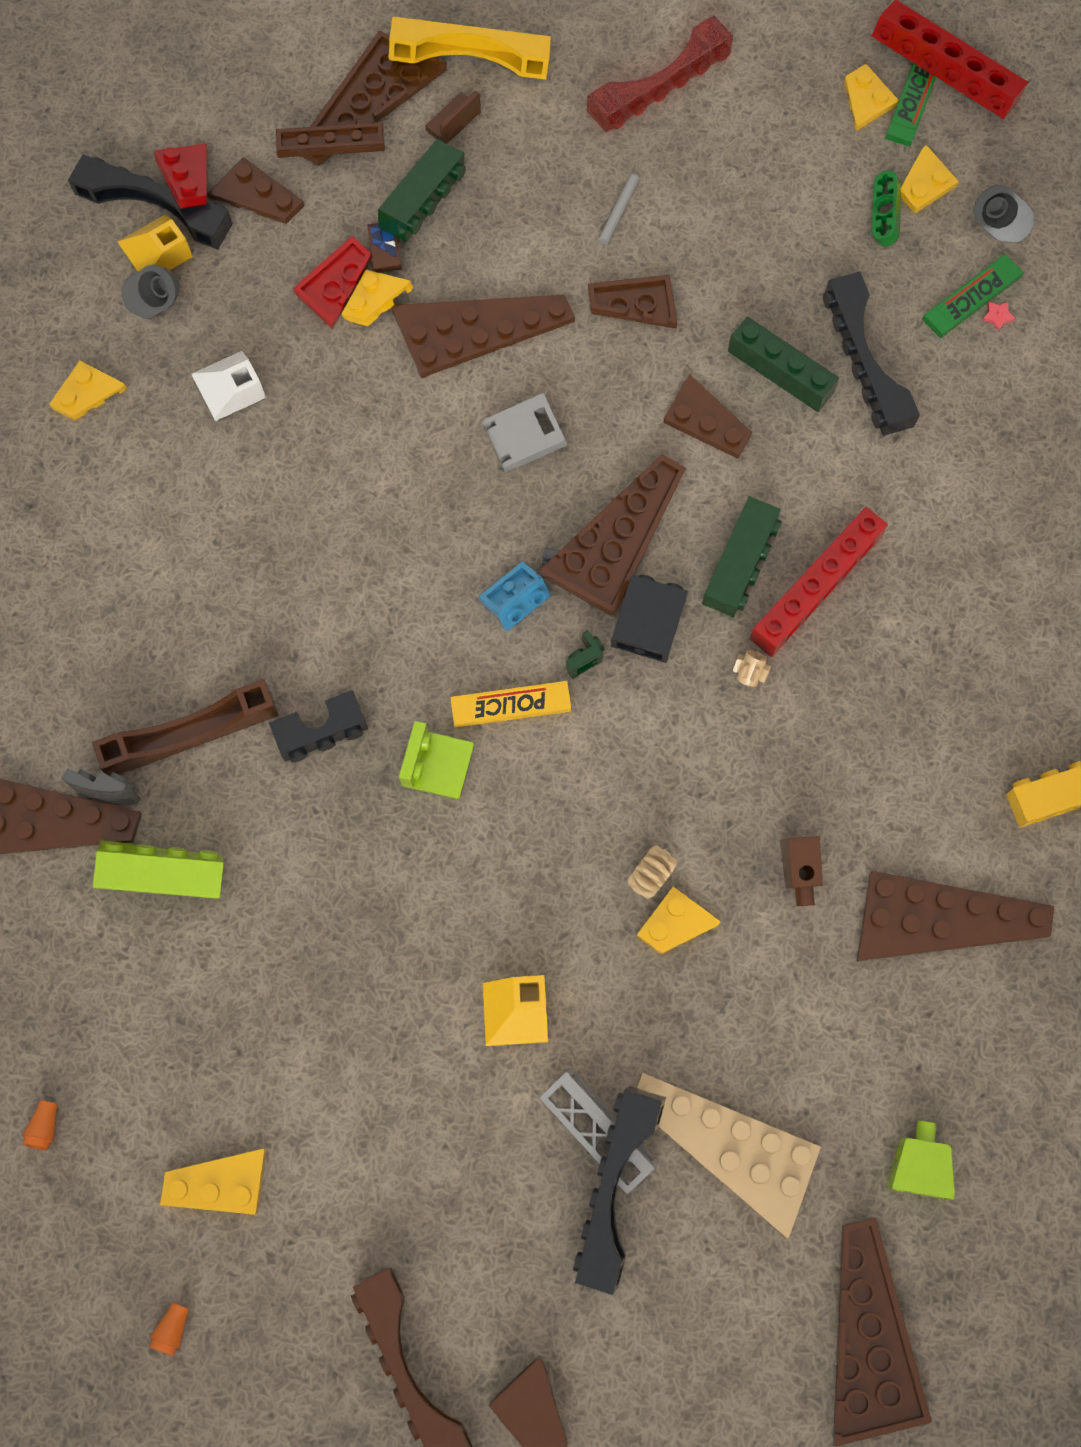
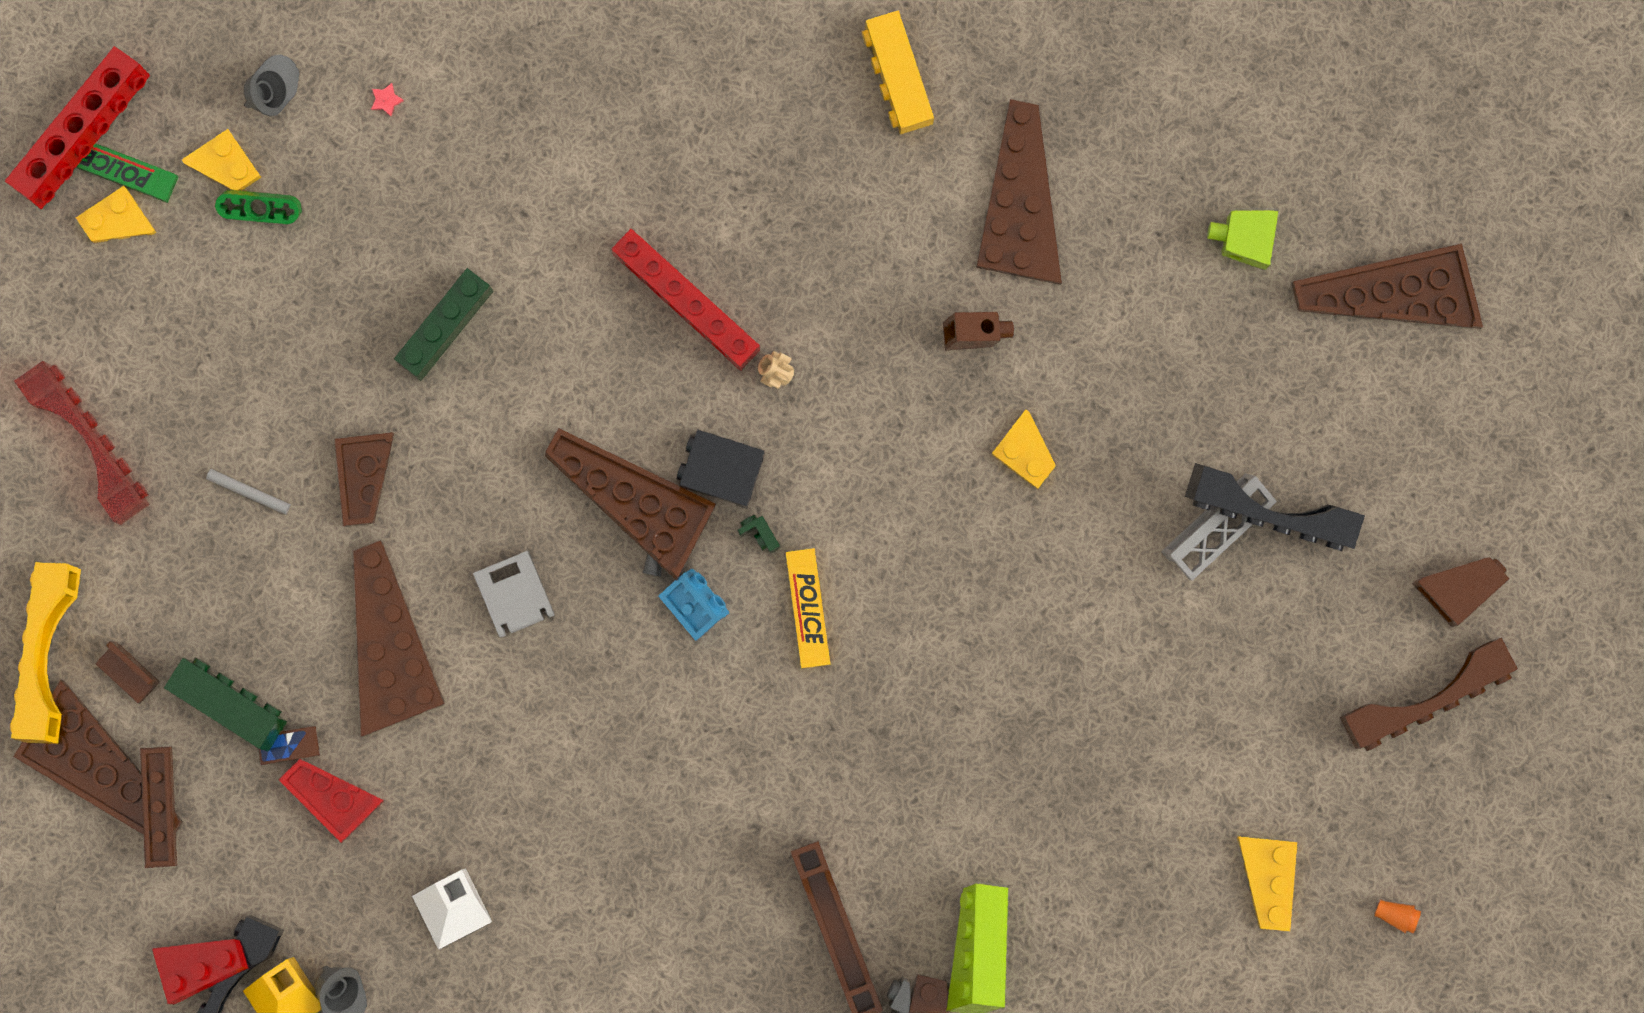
camera: 95 degrees left, 10 degrees up
(256, 191) = (214, 890): reddish brown wing -> none
(297, 740) = (845, 821): black arch -> none
(374, 296) = (350, 755): yellow wing -> none
(435, 762) = (870, 679): lime bracket -> none
(515, 1011) = (1111, 603): yellow slope -> none
(652, 872) = (981, 472): tan gear -> none
(706, 419) = (501, 405): reddish brown wing -> none
(741, 557) = (656, 374): dark green brick -> none
(748, 1156) = (1238, 394): tan wing -> none
(890, 402) = (489, 217): black arch -> none
(972, 296) = (364, 124): green tile -> none

